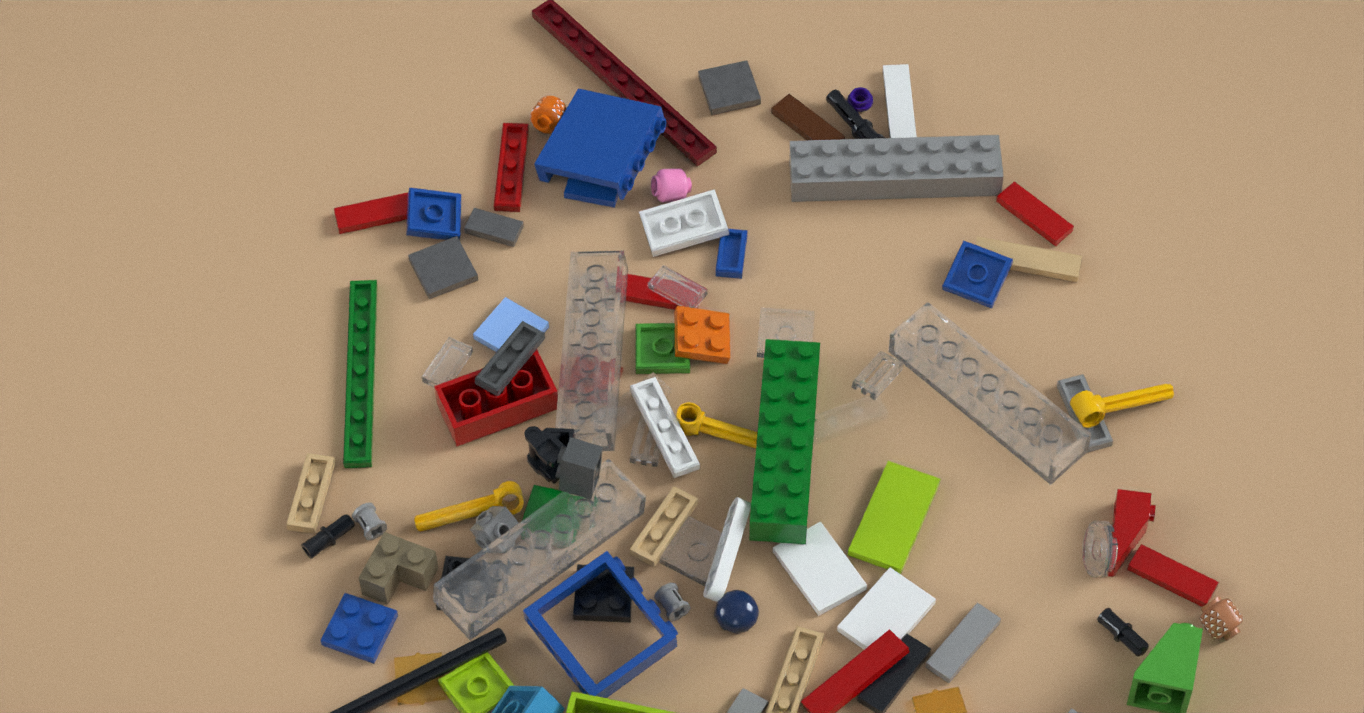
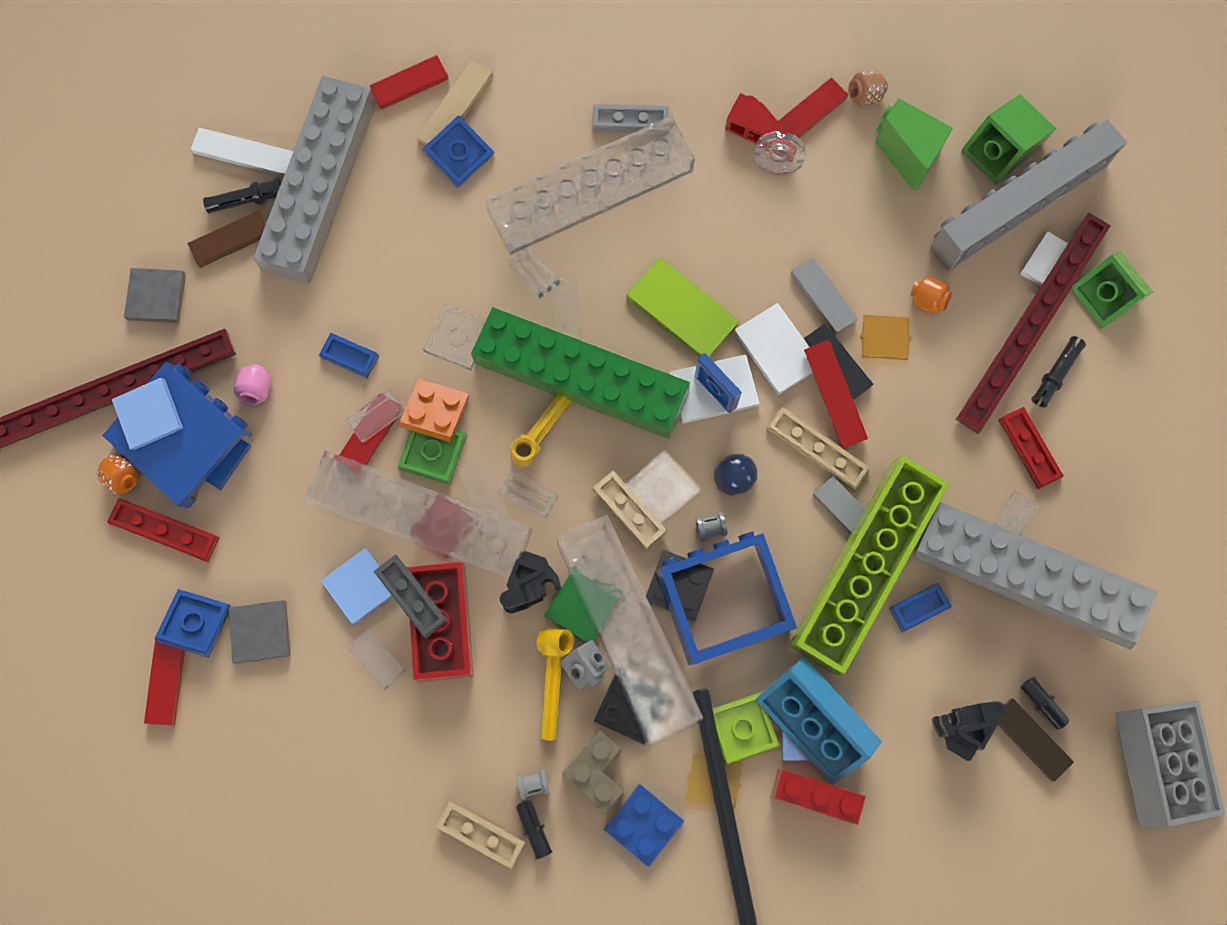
camera: 75 degrees left, 20 degrees up
(360, 374) = (353, 747): green tile -> none
(494, 227) = (230, 568): flat silver tile -> none
(579, 467) = (575, 565): dark grey brick -> none
(608, 110) = (147, 414): none -> light blue tile
(664, 427) = (525, 475): white tile -> none
(684, 223) = (299, 387): white tile -> none
(727, 549) = (704, 476): white beam -> none
(816, 553) = (717, 383): none -> blue tile
(860, 99) = (219, 177): dark purple plate -> none
(1092, 408) = (637, 105): yellow axle -> none
(1123, 632) = (855, 167): black axle -> none

